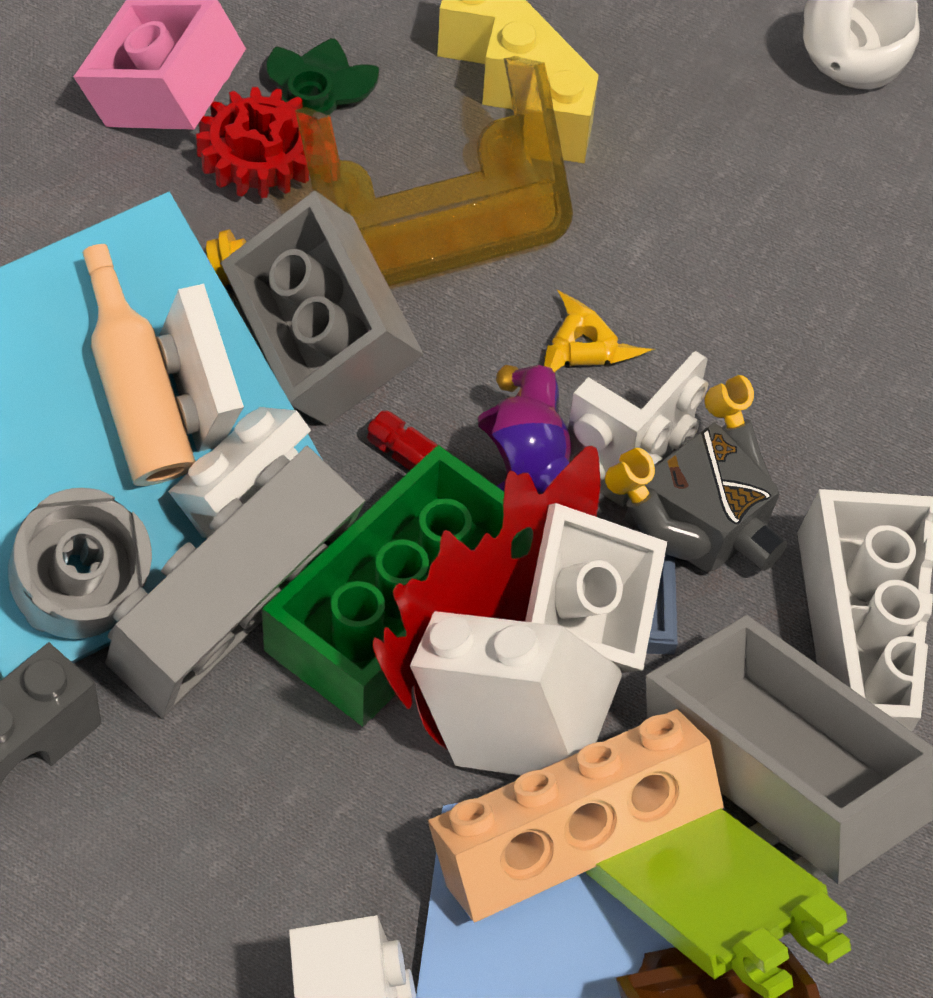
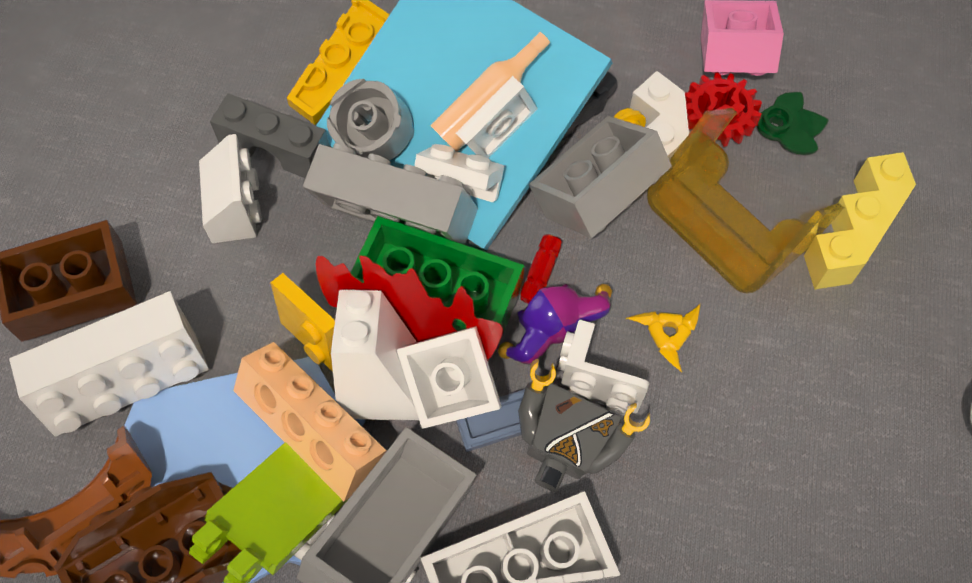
camera: 75 degrees right, 10 degrees up
(85, 833) = (227, 192): none -> white slope
(235, 198) = (664, 110): none -> white brick
(404, 770) = (304, 319): none -> yellow plate

